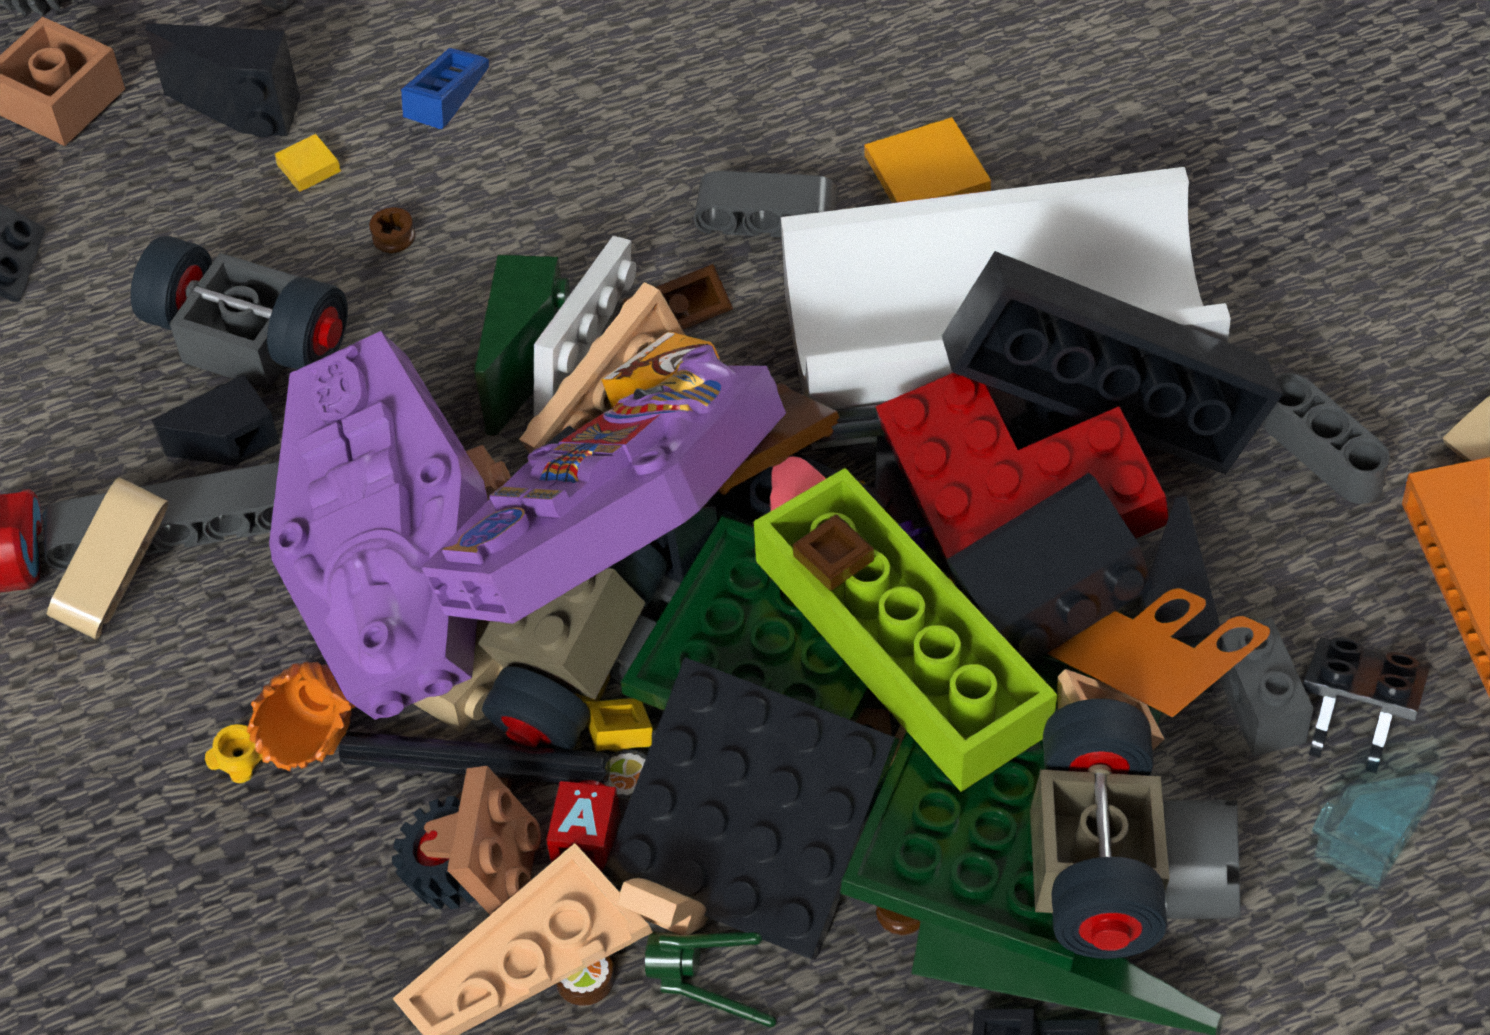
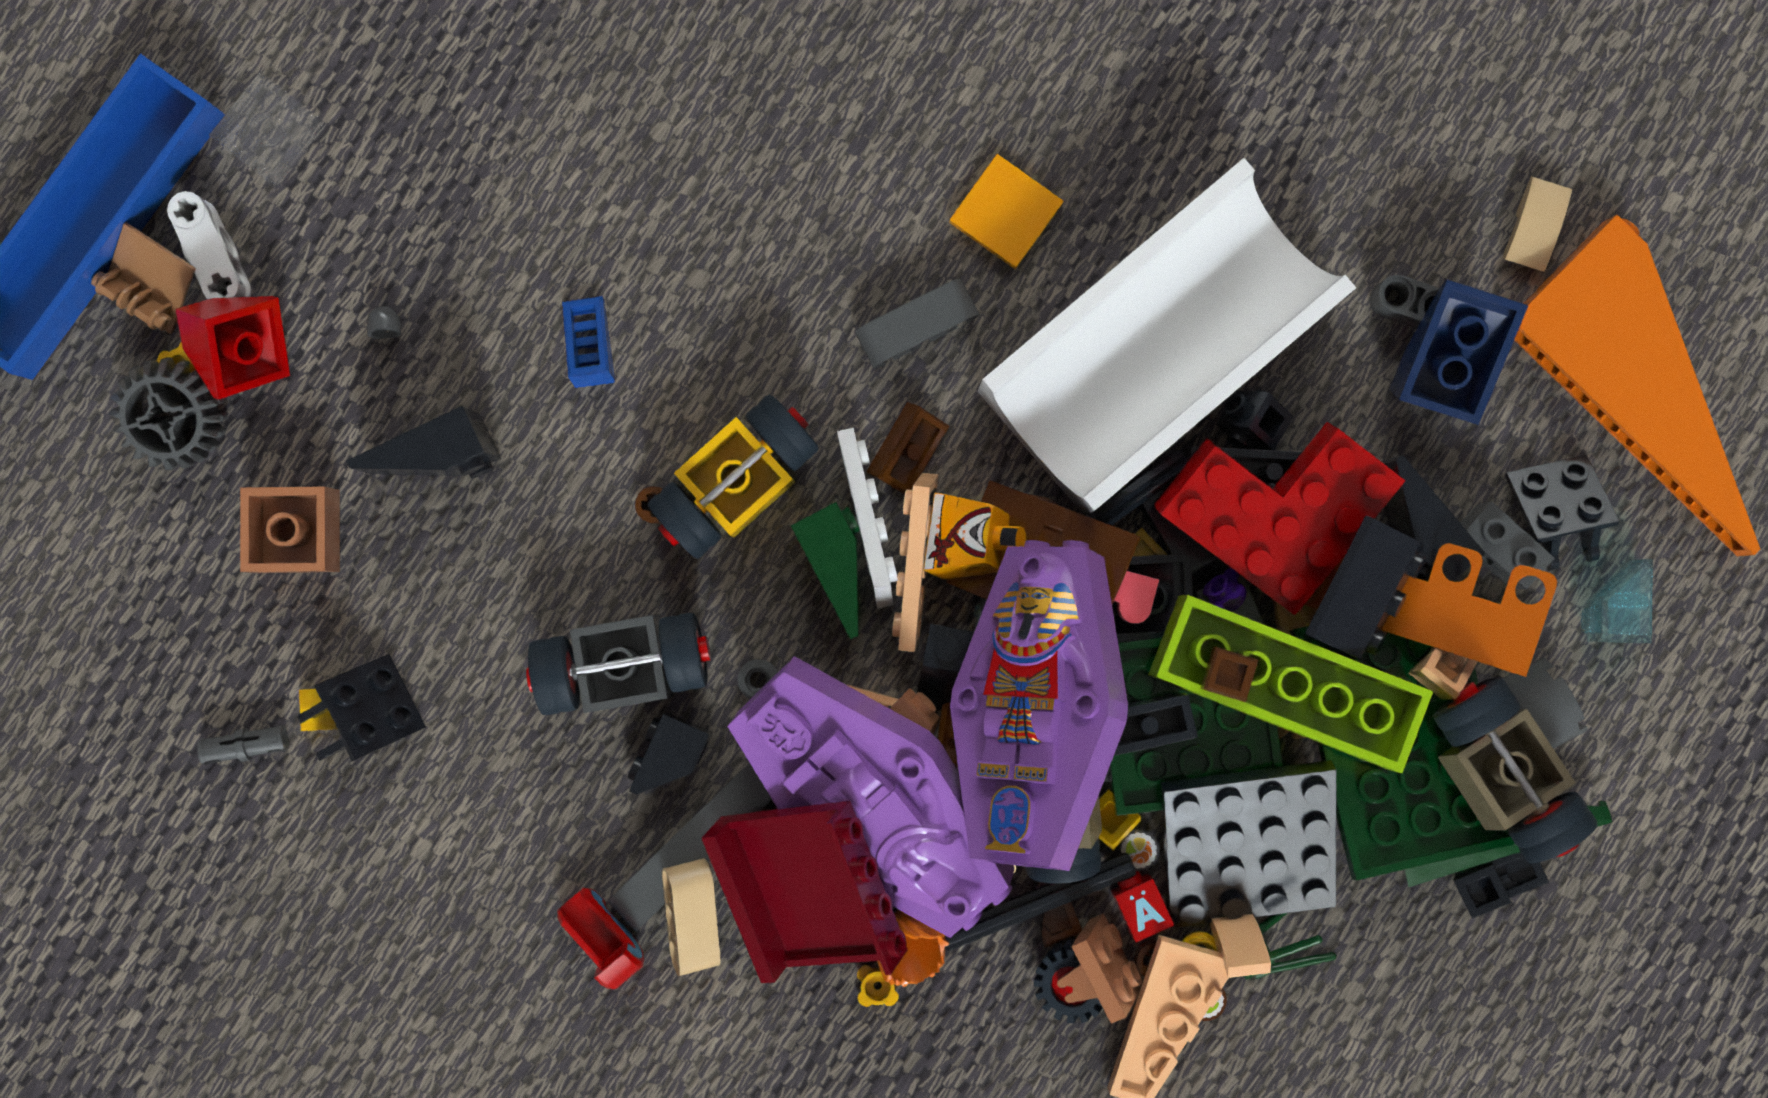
camera: 35 degrees left, 35 degrees up
(235, 571) = (804, 888): none -> dark red panel
(307, 162) = (540, 478): yellow tile -> none
(479, 219) = (733, 477): none -> brick
(714, 582) = (1157, 723): none -> black brick
(1097, 353) = (1296, 381): black brick -> none
(1321, 461) = (1458, 351): none -> dark blue slope

